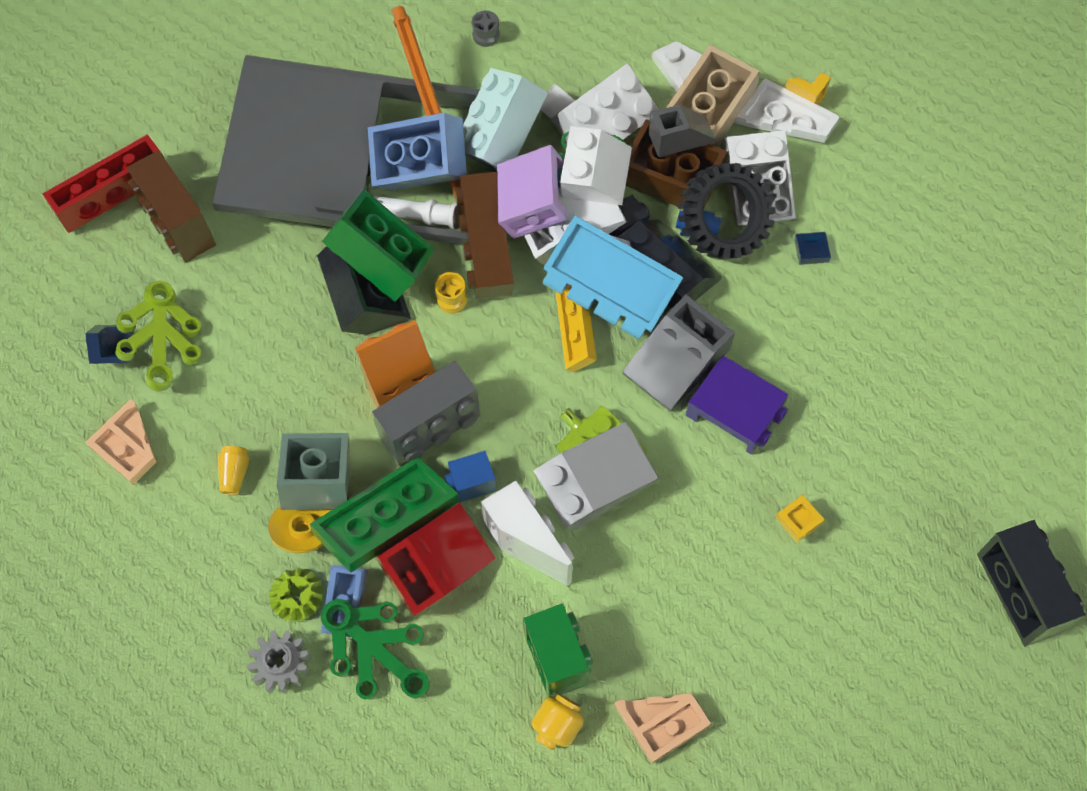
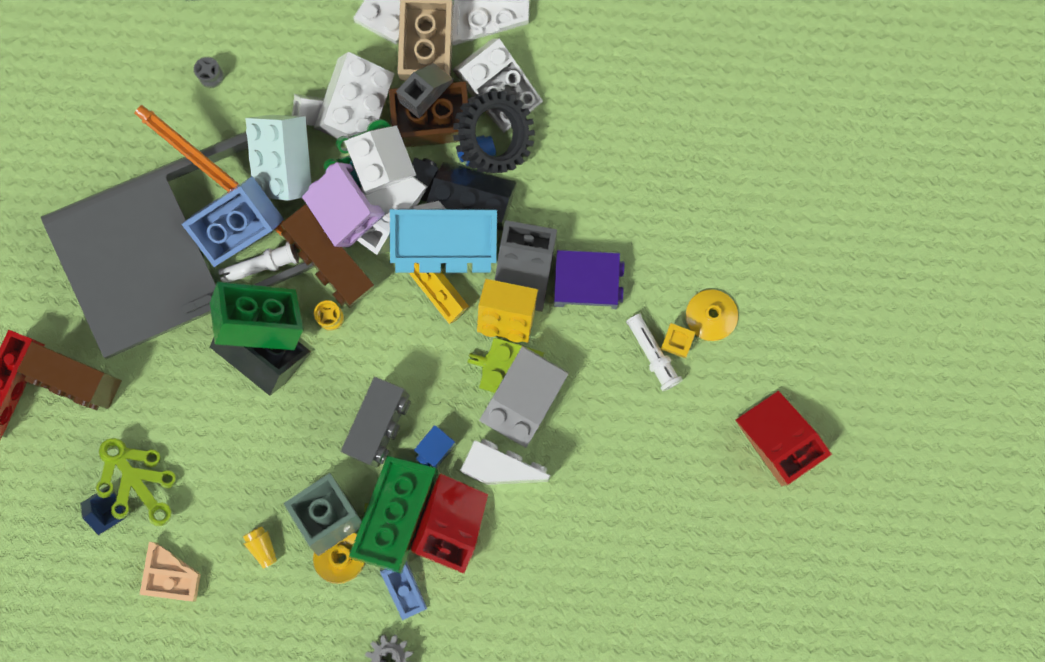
camera: 30 degrees left, 15 degrees up
(310, 598) = (380, 602): lime gear -> none
(370, 645) = (443, 608): green plant -> none
(394, 362) = (334, 404): orange slope -> none
(556, 650) = (573, 537): green brick -> none
(557, 721) = (600, 581): yellow head -> none
(632, 382) = (506, 310): none -> yellow brick
(662, 722) = (667, 538): light nougat wing -> none
(765, 531) = (659, 364): none -> white pin
(812, 248) = (568, 119): clear blue tile -> none
(844, 529) = (705, 326): none -> yellow dish
(860, 694) = (783, 438): none -> red slope
(1030, 583) = (853, 296): black brick -> none

